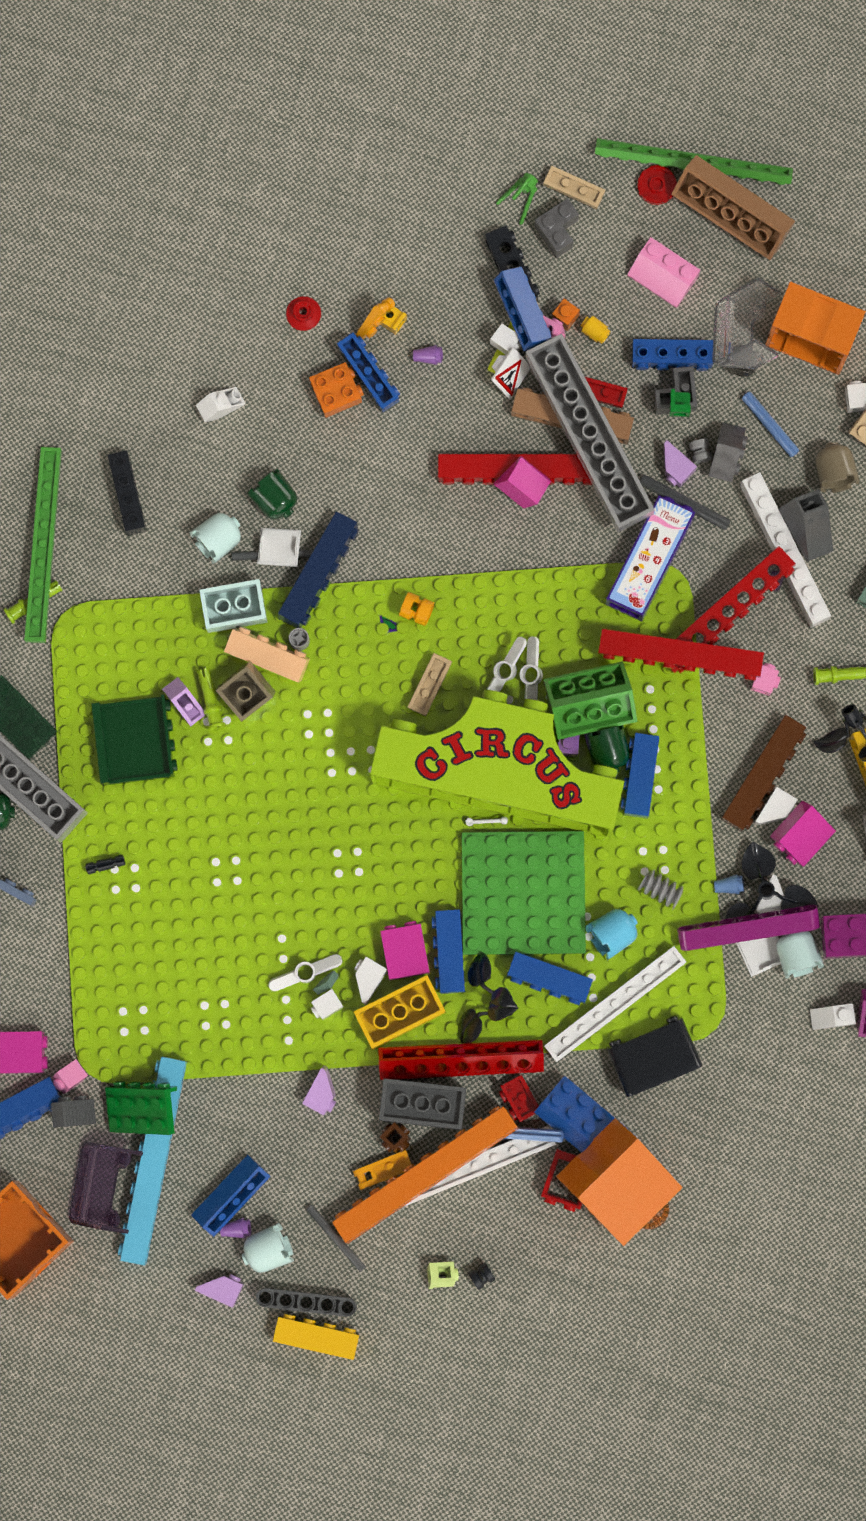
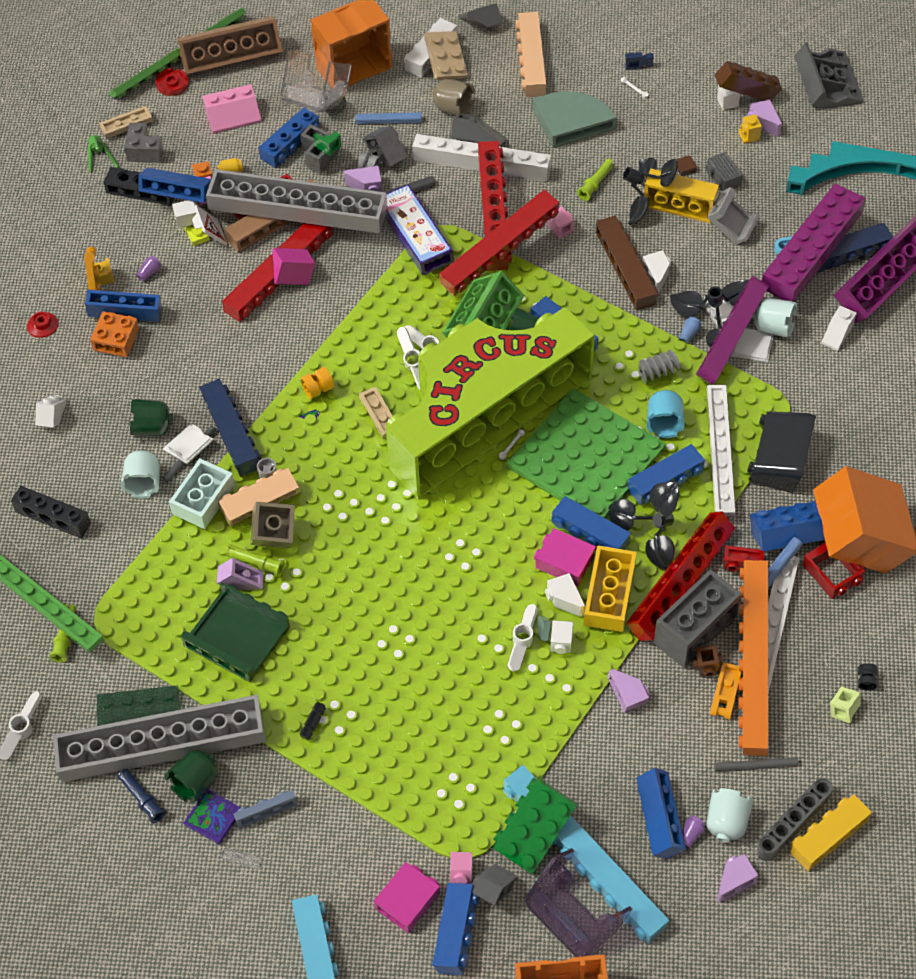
camera: 55 degrees left, 25 degrees down
(802, 834) = (689, 262): dark pink brick -> none

